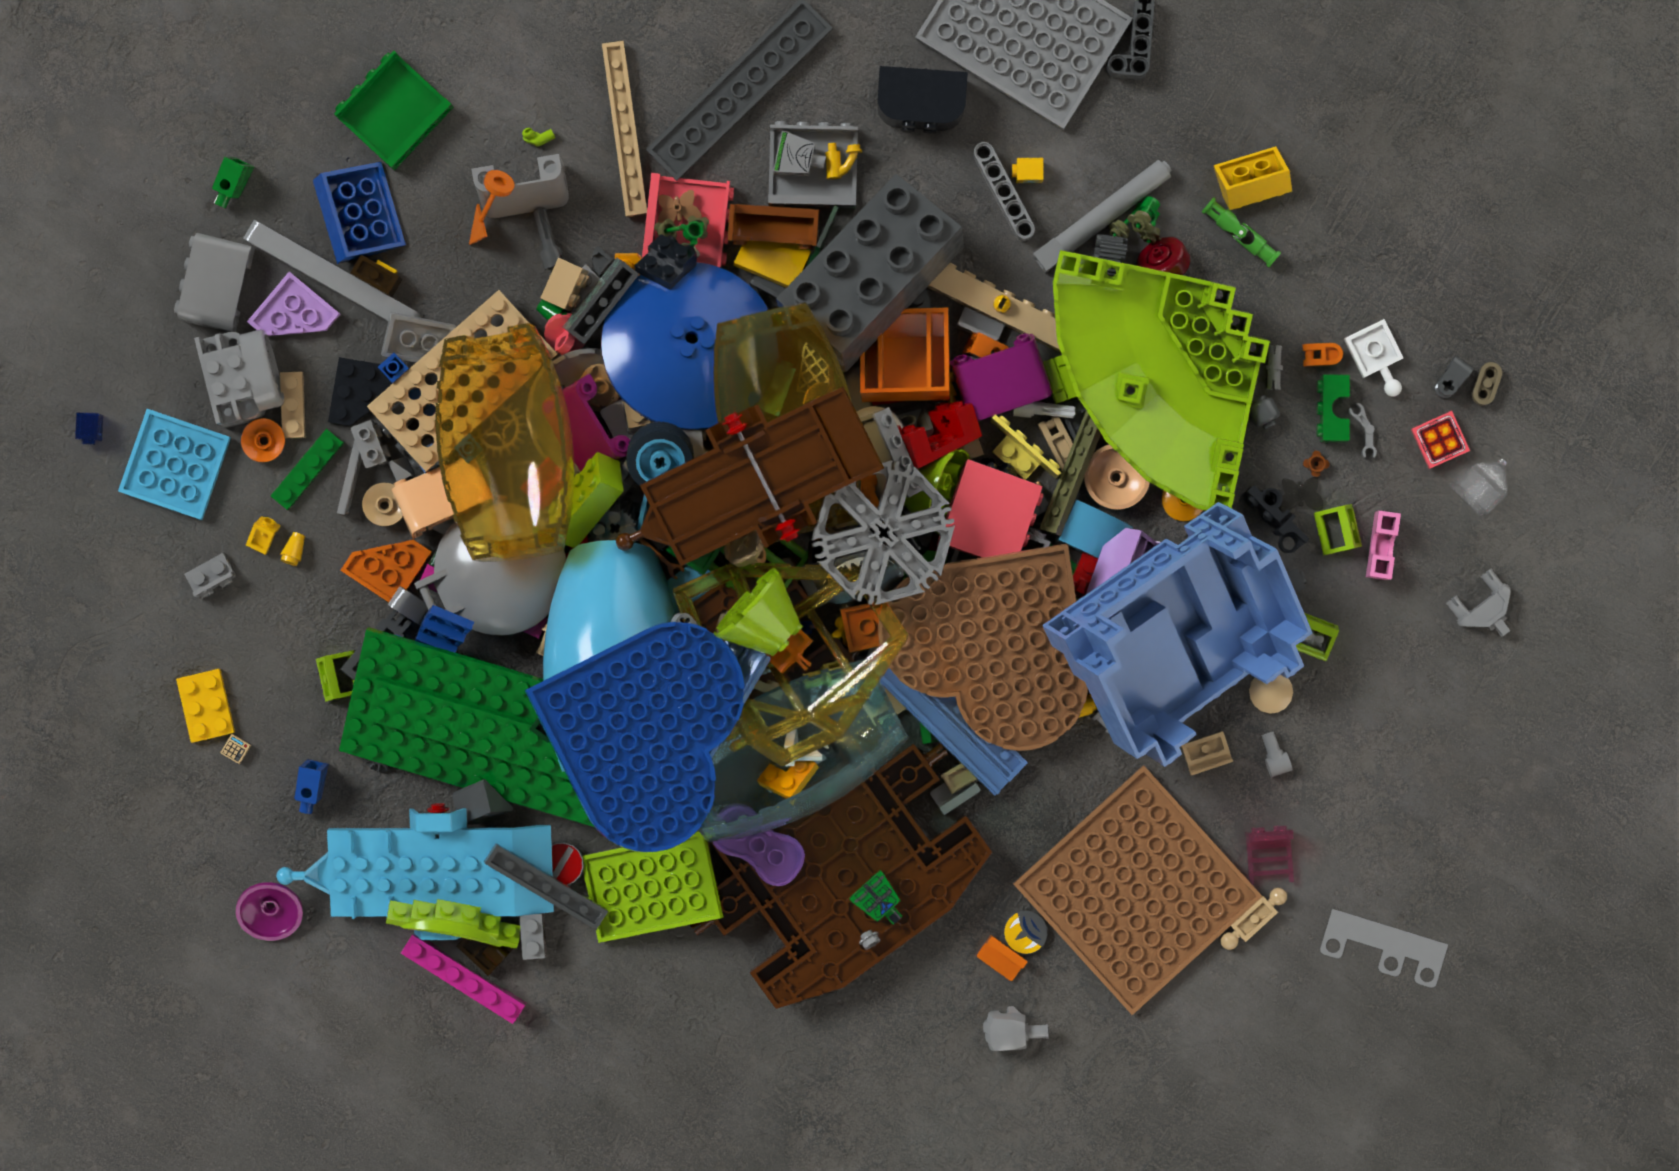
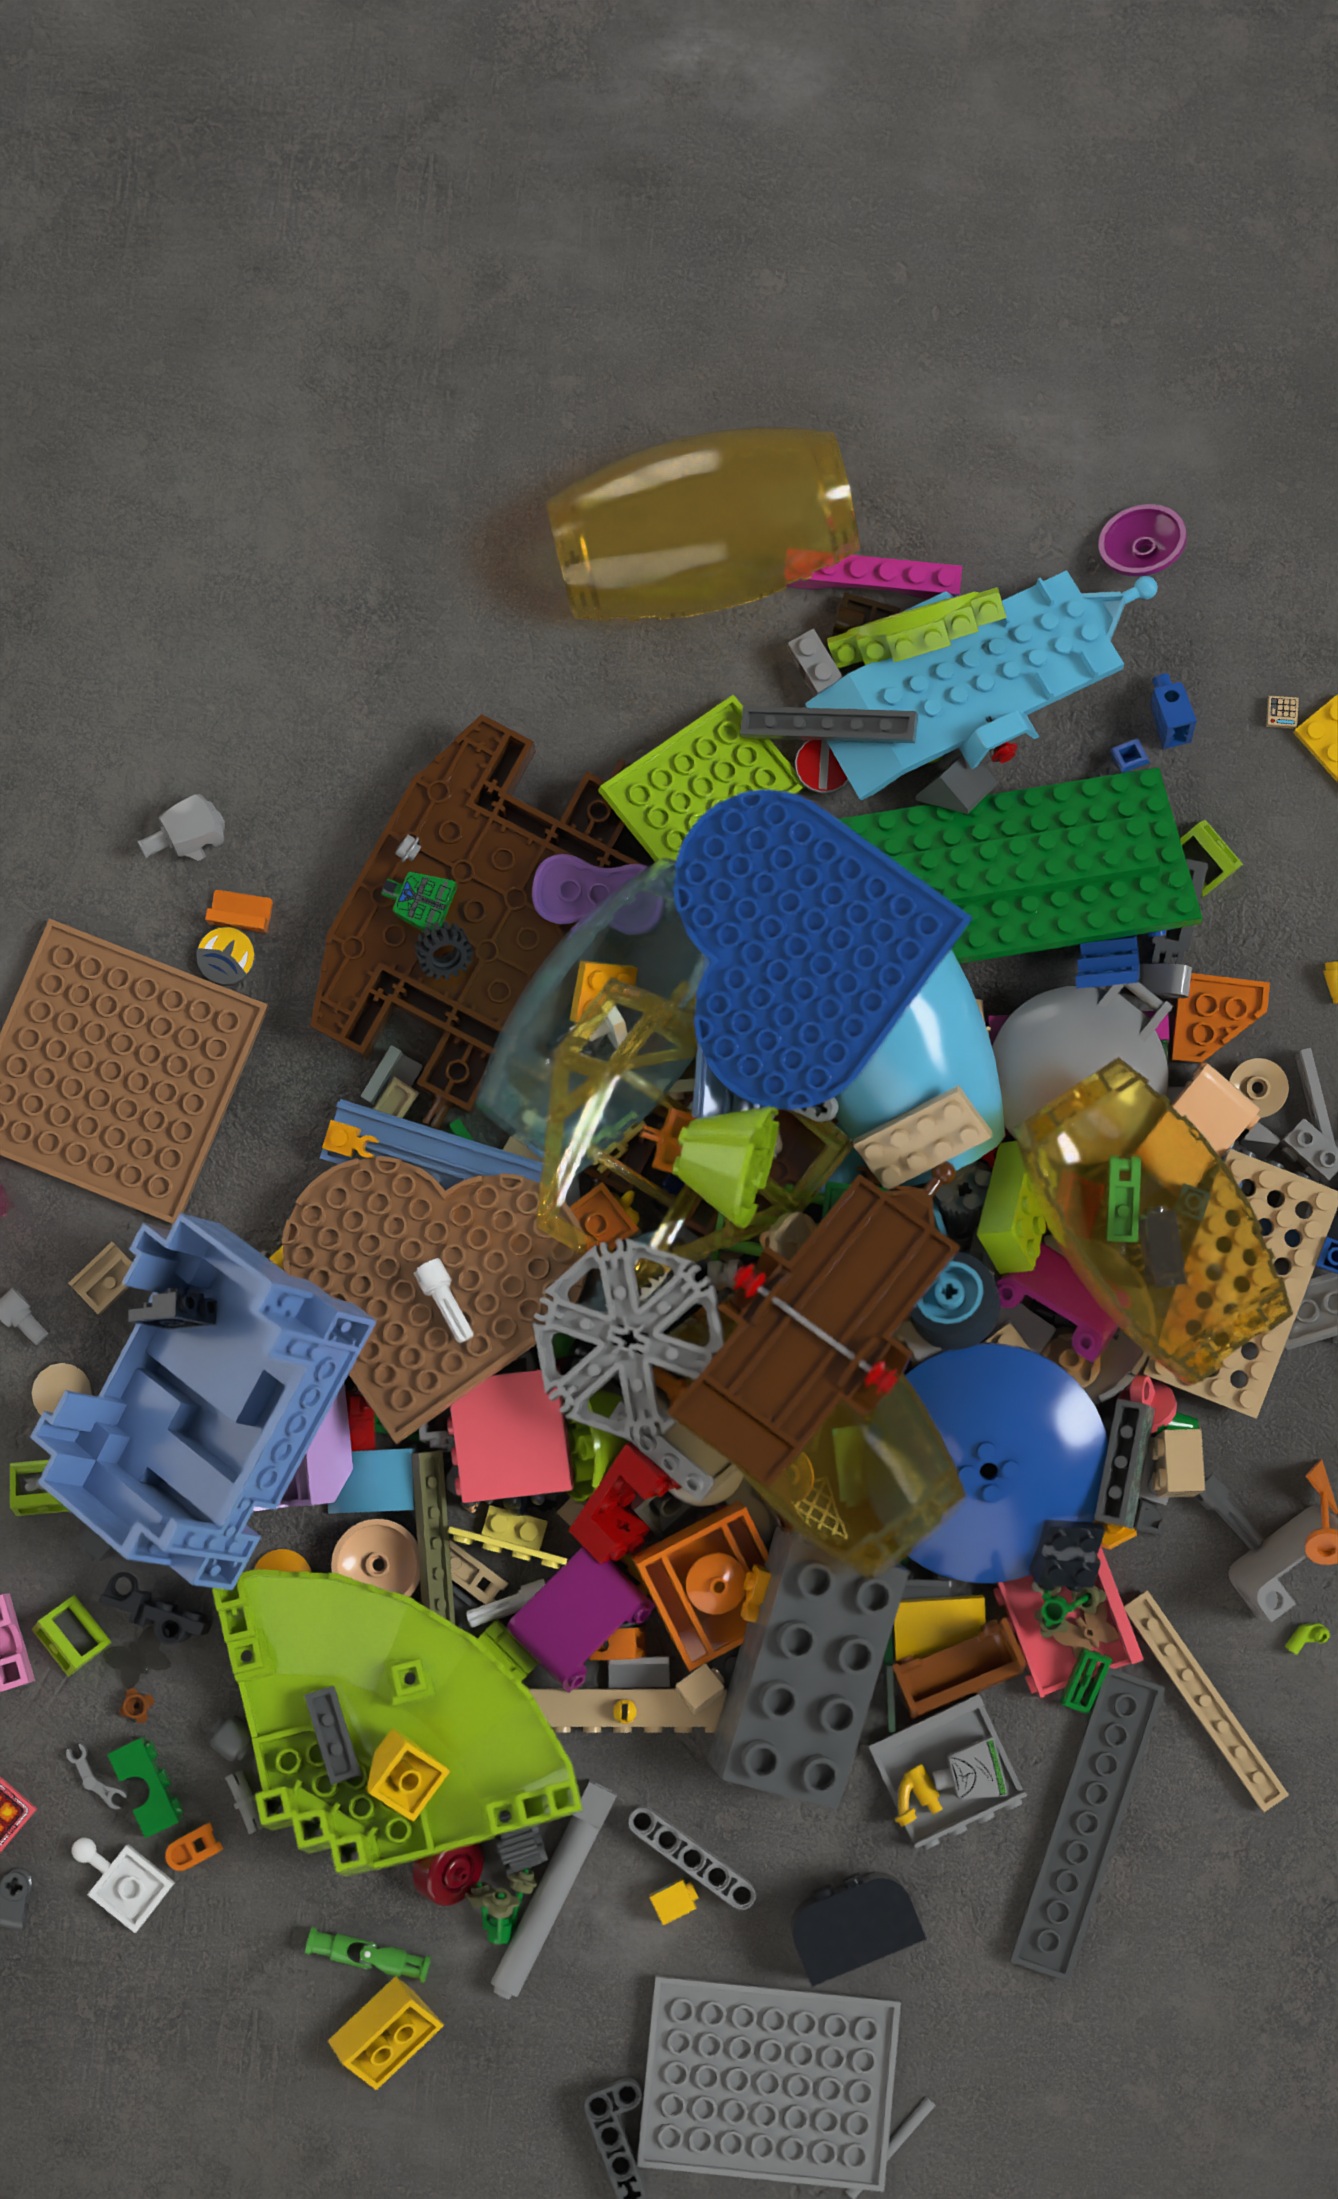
camera: 155 degrees right, 5 degrees down
(354, 768) = (1129, 756): none -> blue slope
(506, 425) = (1161, 1248): none -> clear smoke window
(514, 470) = (1123, 1199): none -> bright green plate
(561, 1068) = (703, 523): none -> clear yellow windscreen
(627, 569) = (922, 1138): none -> tan plate
(699, 185) = (1074, 1678): none -> green tile
(799, 549) = (723, 1273): none -> light grey wheel
(879, 338) = (756, 1587): none -> light orange plate
(879, 847) = (445, 964): none -> black tyre
(903, 363) = (705, 1573): none -> orange dish
(945, 293) = (700, 1688): none -> tan brick
(991, 636) = (436, 1282): none -> white piece
(1004, 764) = (345, 1139): none -> light orange plate
(1163, 330) = (404, 1775): none -> yellow slope
(1169, 701) = (176, 1310): none -> black plate
(1197, 379) = (332, 1735): none -> dark grey plate

